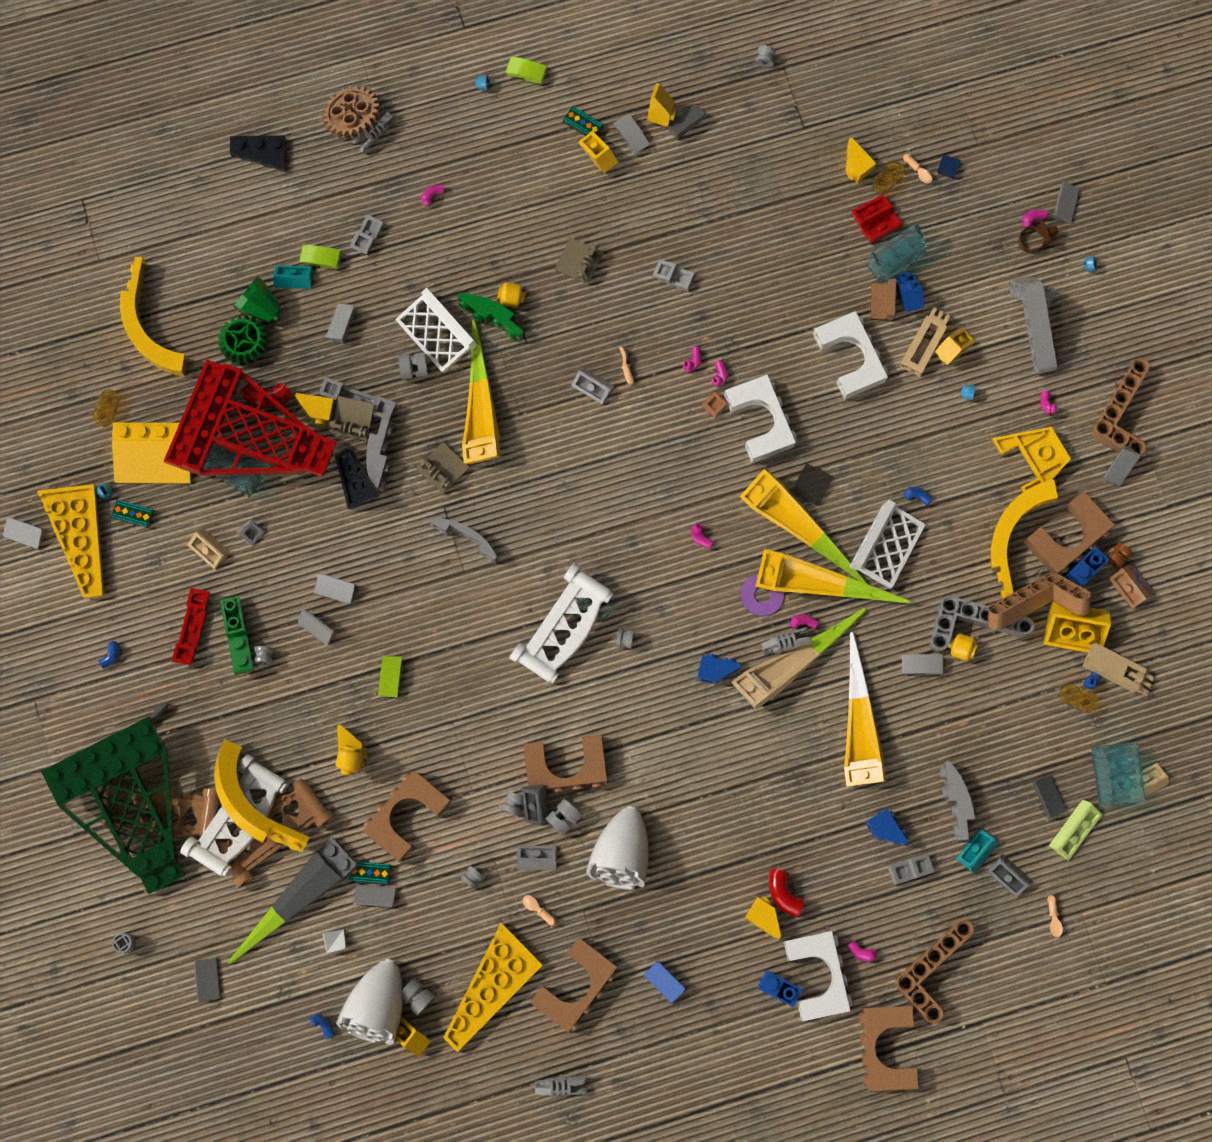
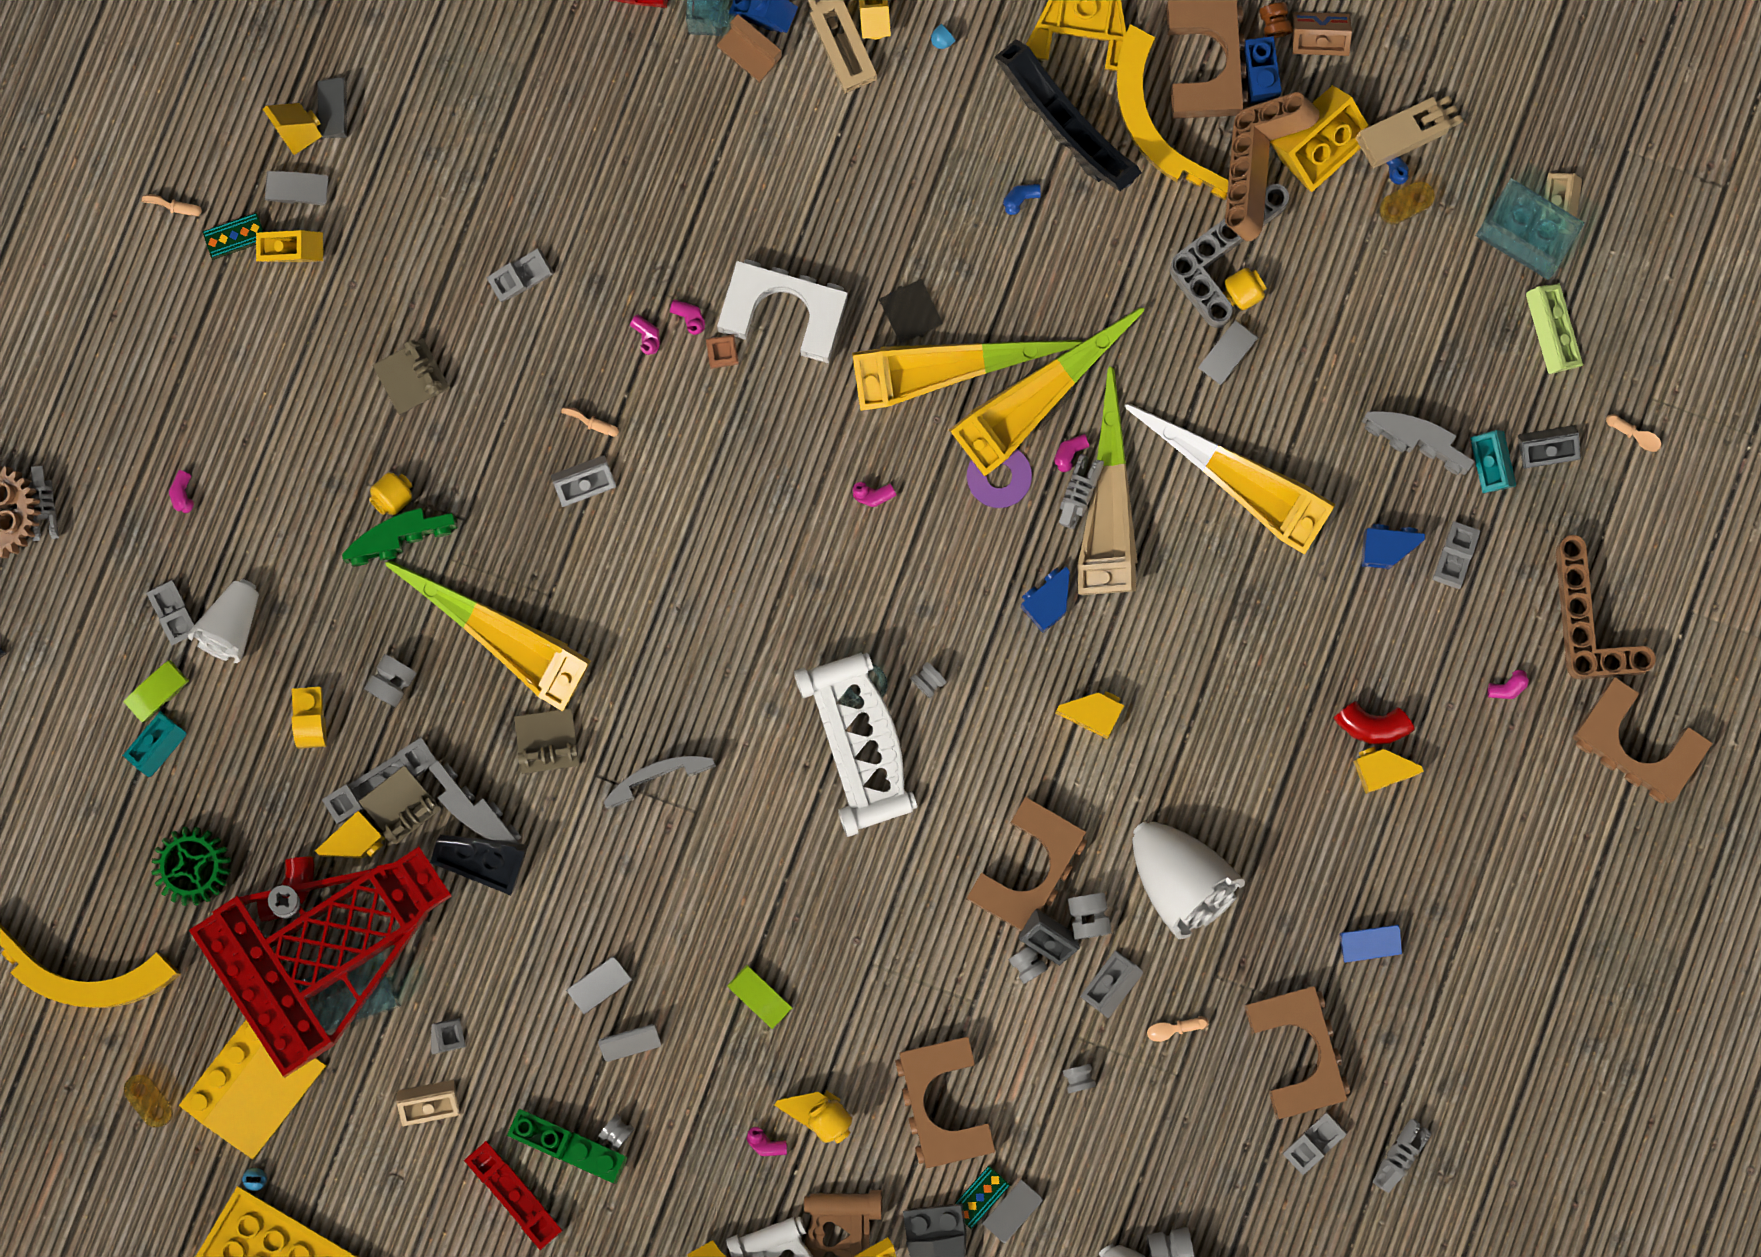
camera: 50 degrees left, 5 degrees up
(132, 513) = (310, 1165): dark green tile -> none
(258, 302) = (158, 811): green cone -> none
(258, 397) = (288, 906): none -> light grey wheel
(313, 737) = (763, 1145): none -> dark pink arm
(341, 322) = (262, 729): light grey slope -> none
(360, 341) = (308, 718): none -> yellow brick
(382, 263) = (227, 622): none -> white cone
(450, 324) = (359, 595): white fence -> none
(482, 82) = (83, 319): dark azure hinge -> none
(497, 979) = (1221, 1136): yellow wing -> none
(526, 69) = (108, 252): lime slope -> none
(533, 1033) = (1315, 1143): none -> light grey slope
(575, 83) = (174, 206): none -> light nougat piece
(674, 737) = (1094, 712): none -> yellow slope
(779, 988) = (1480, 815): blue slope -> none
(835, 998) = (1539, 759): white arch -> none
(851, 329) = (757, 115): white arch -> none
(873, 536) = (1034, 294): white fence -> none
(976, 483) = (1065, 122): none -> black arch
(1049, 796) = (1493, 329): dark grey slope -> none

